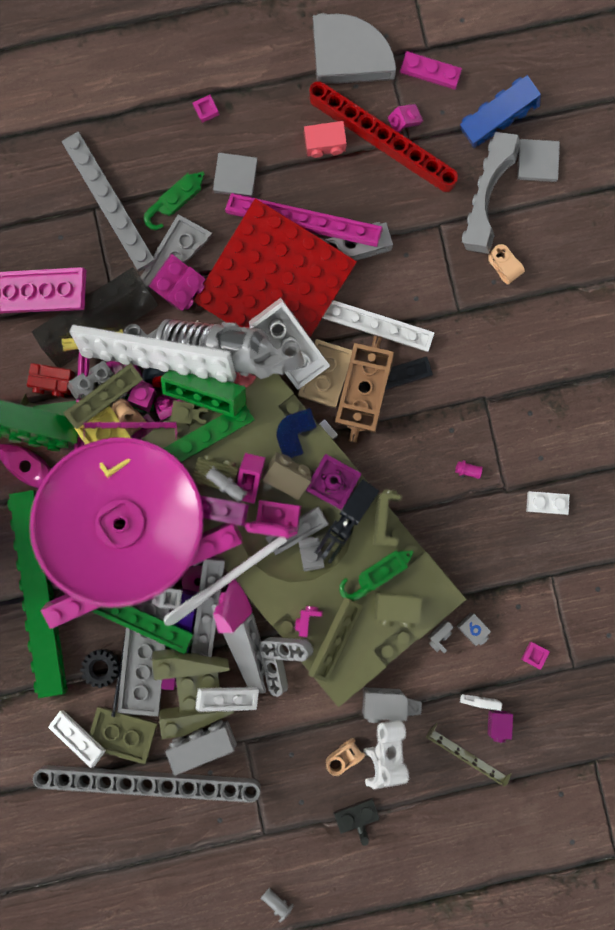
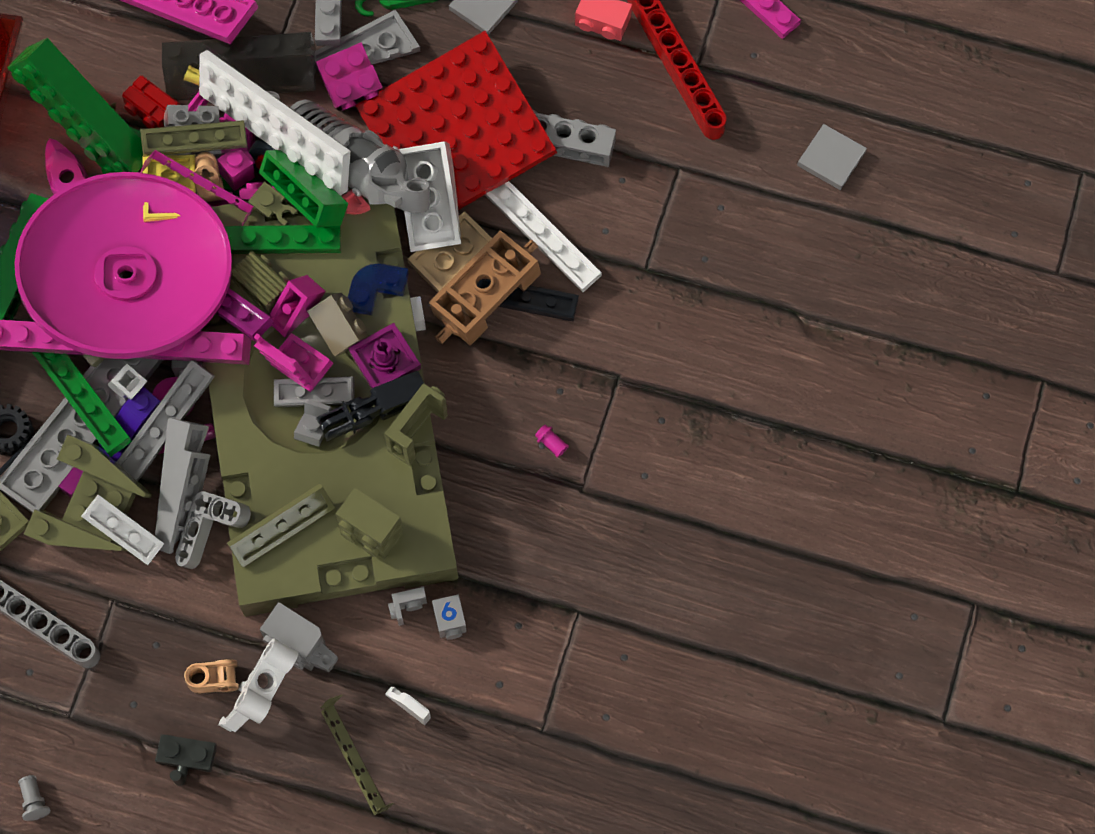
camera: 30 degrees right, 15 degrees down
(188, 606) = (155, 400): white piece -> none
(201, 746) = (61, 568): light grey piece -> none
(226, 484) = (264, 291): light grey pin -> none
(232, 608) = (190, 428): dark pink slope -> none
(302, 622) = (256, 488): dark pink bracket -> none
(314, 221) = (540, 91): dark pink tile -> none
(378, 574) = (375, 481): green plate -> none
(404, 117) = (706, 37): dark pink bracket -> none
(500, 725) = (413, 741): magenta brick -> none
(501, 111) = (815, 83): blue wedge -> none
(502, 154) = (788, 129): light grey arch -> none
(507, 266) = (727, 245): light nougat piece -> none
(535, 655) = (503, 687): dark pink plate -> none
(548, 503) = (622, 527): white plate -> none

